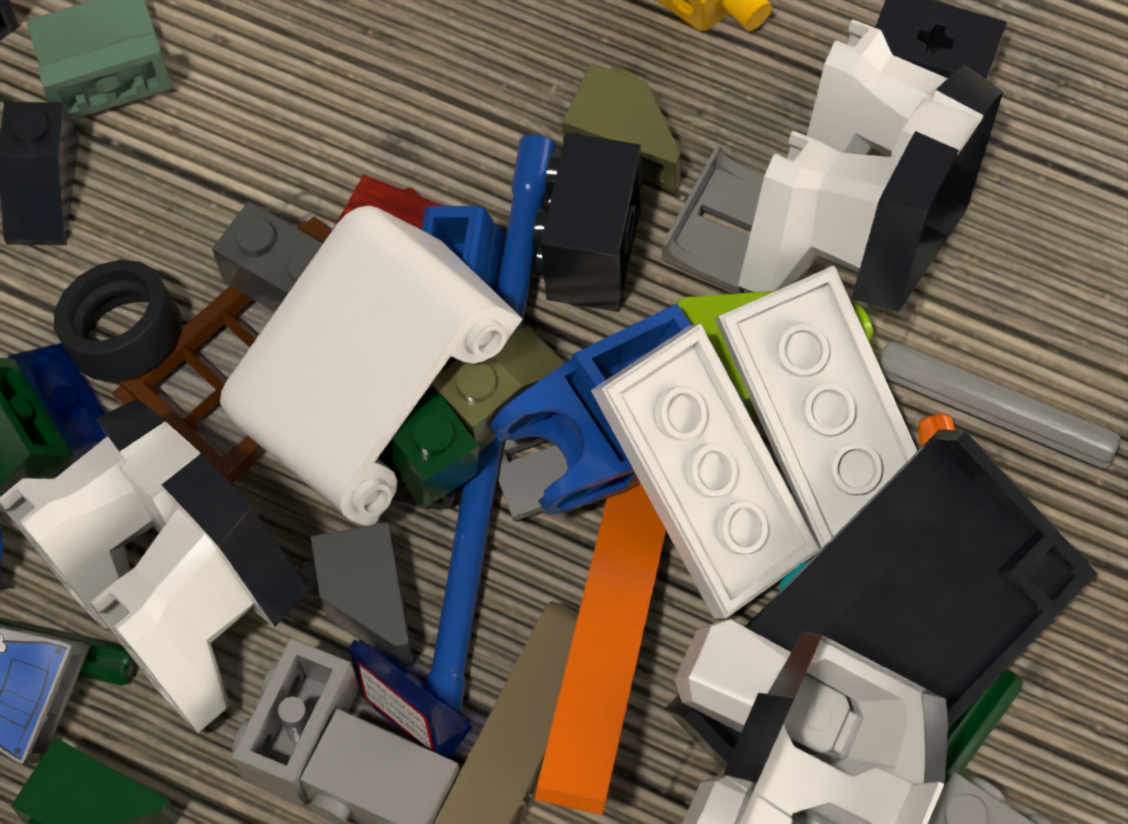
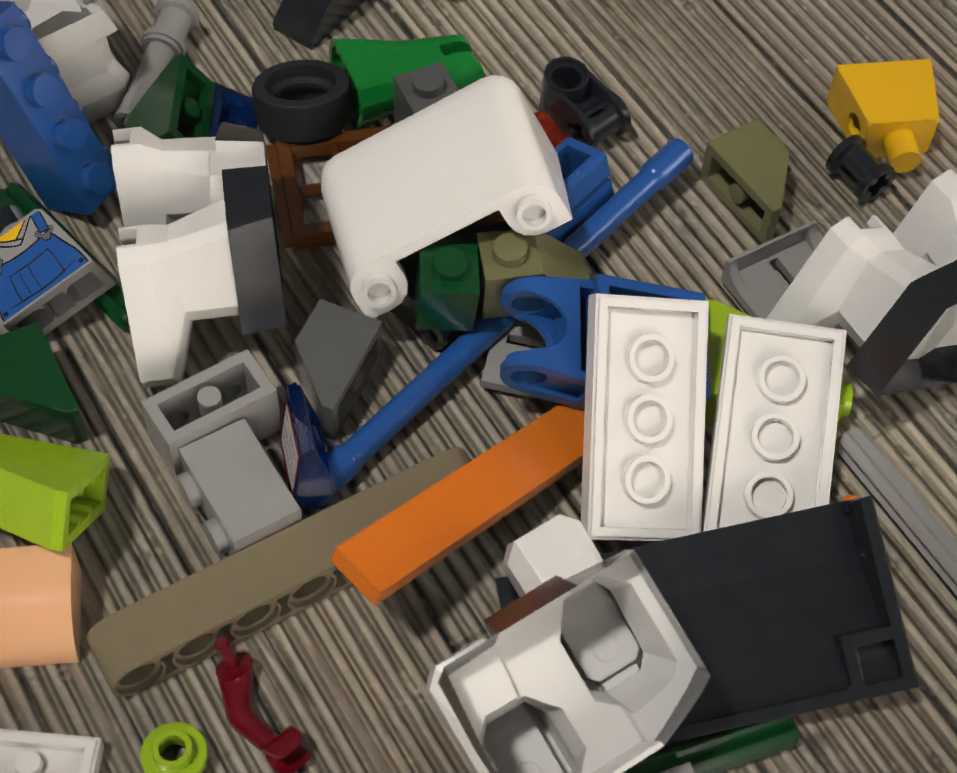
camera: 25 degrees right, 10 degrees down
(187, 217) = (375, 62): none -> green piece
(406, 149) = (581, 102): none -> black piece
(590, 221) = (682, 213): black brick -> none
(719, 51) = (860, 169): none -> black bush

